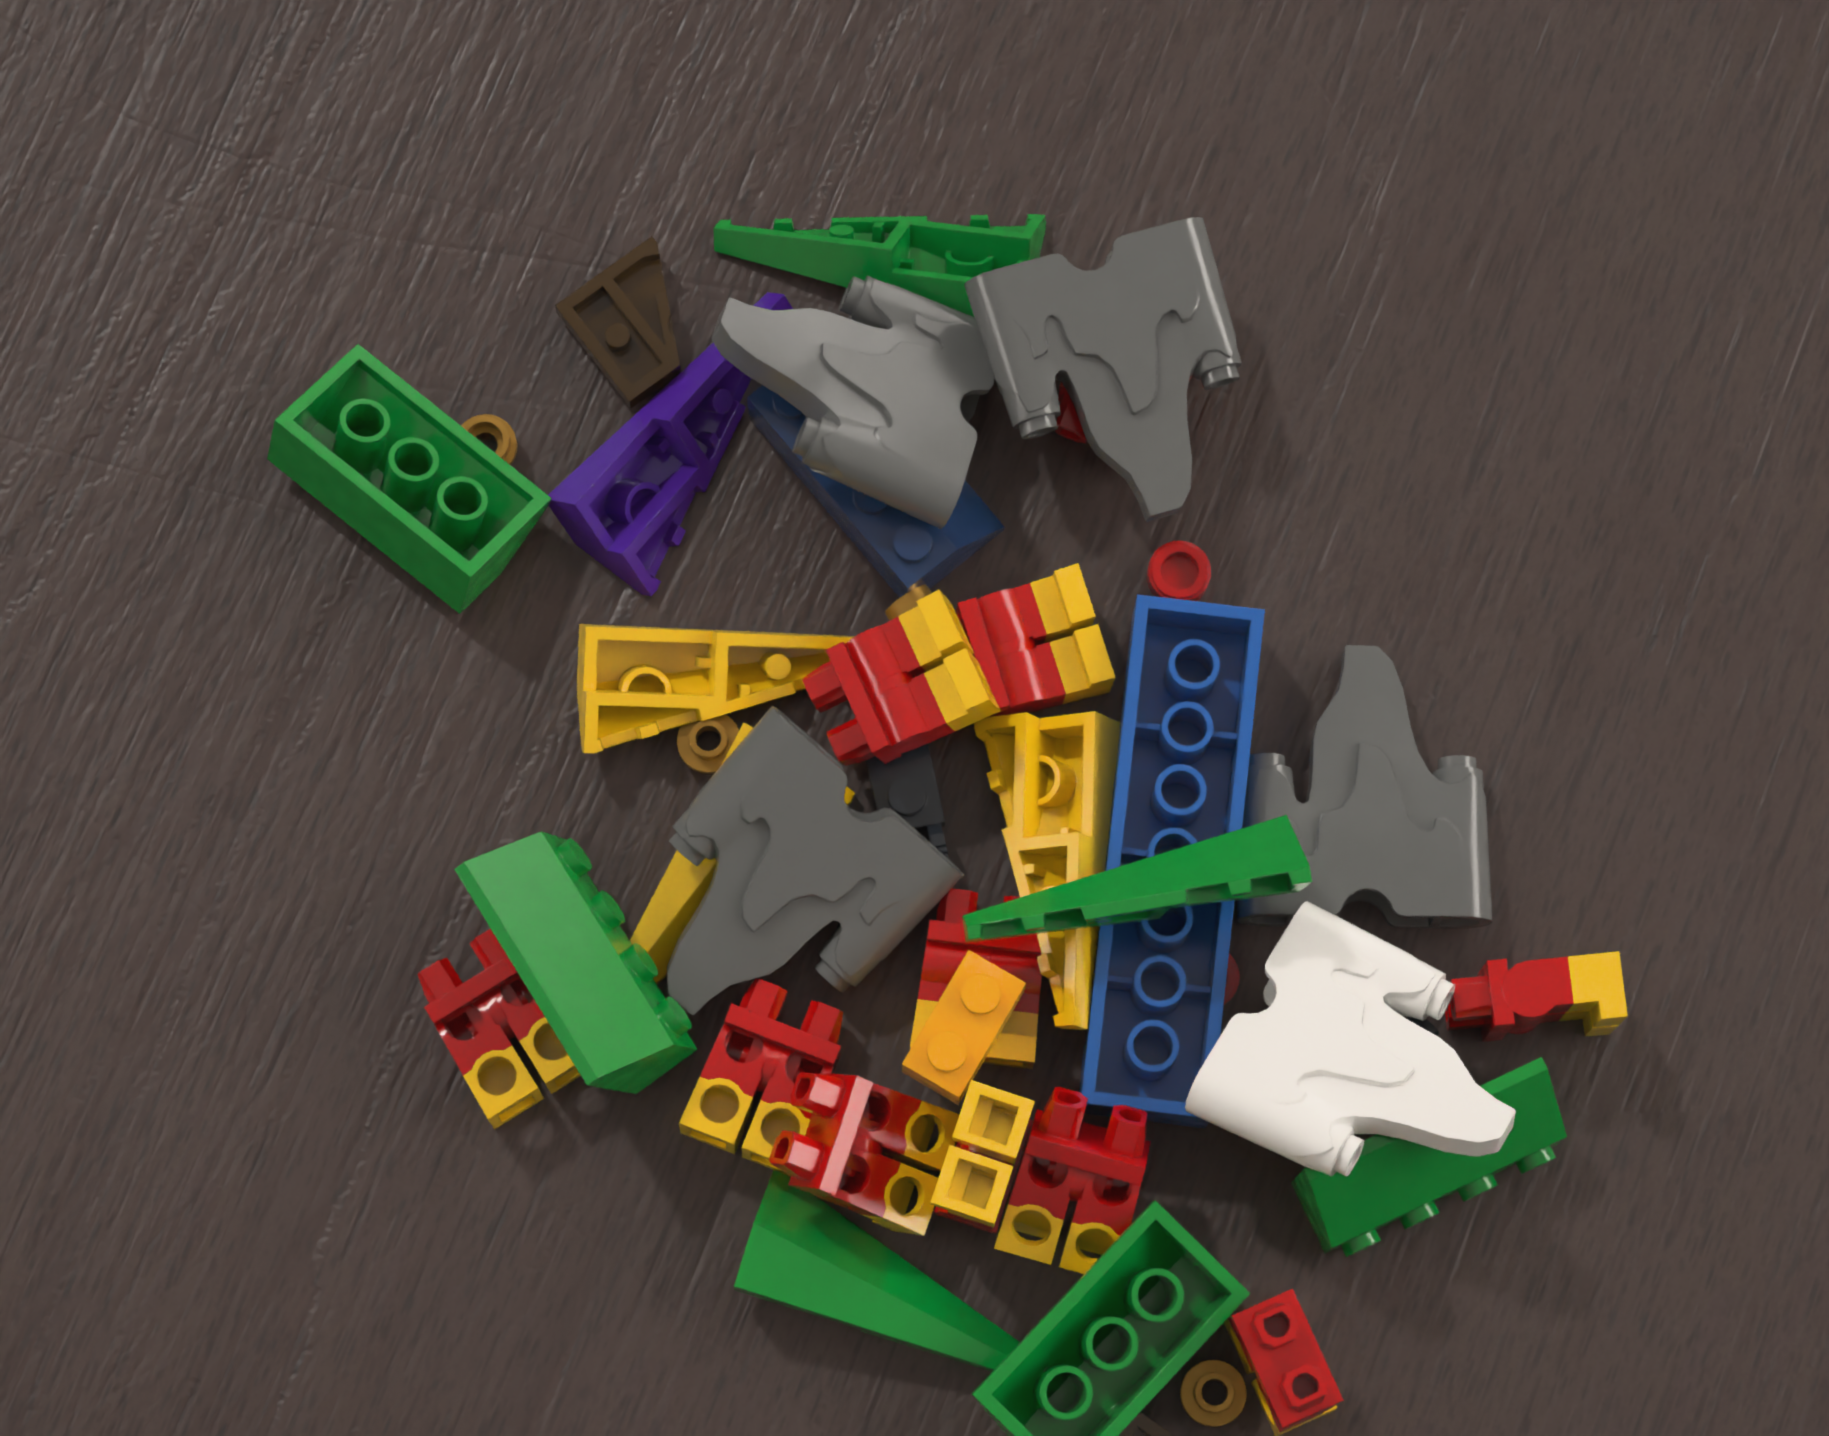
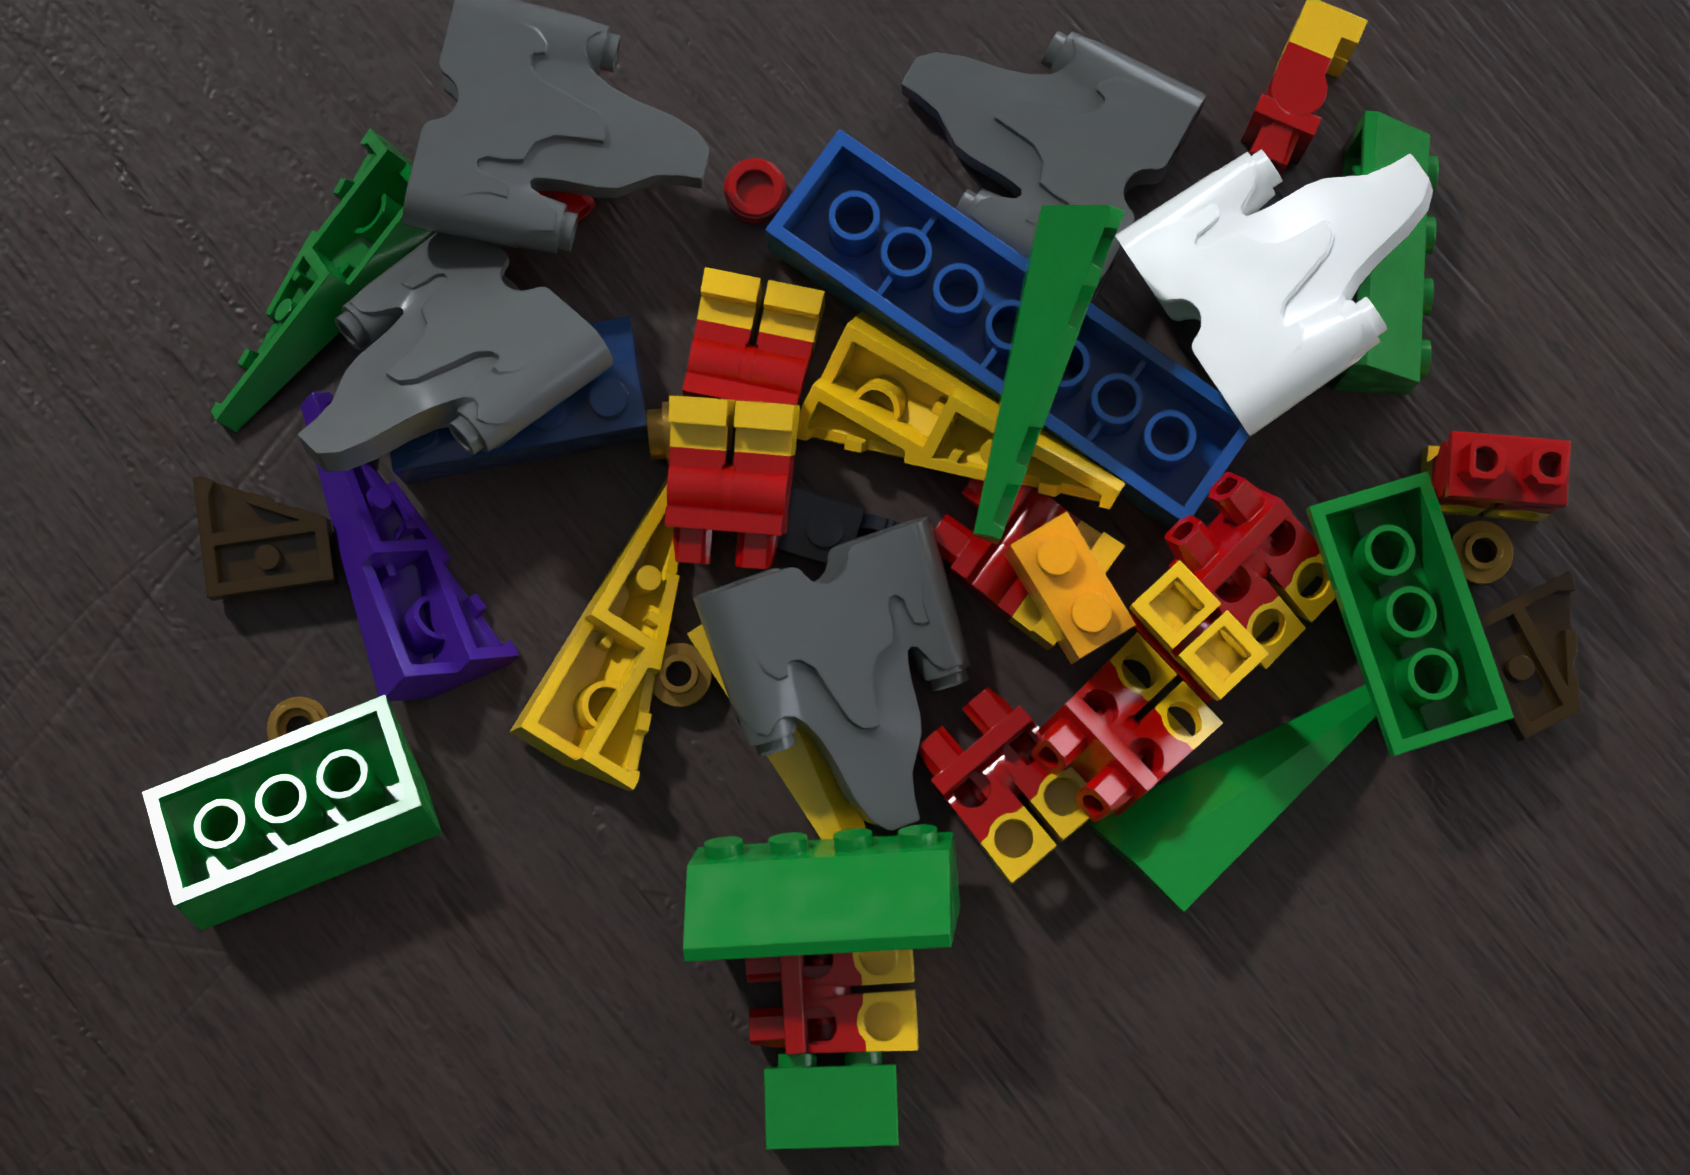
camera: 55 degrees left, 5 degrees up
(403, 1074) = (831, 1102): none -> green brick

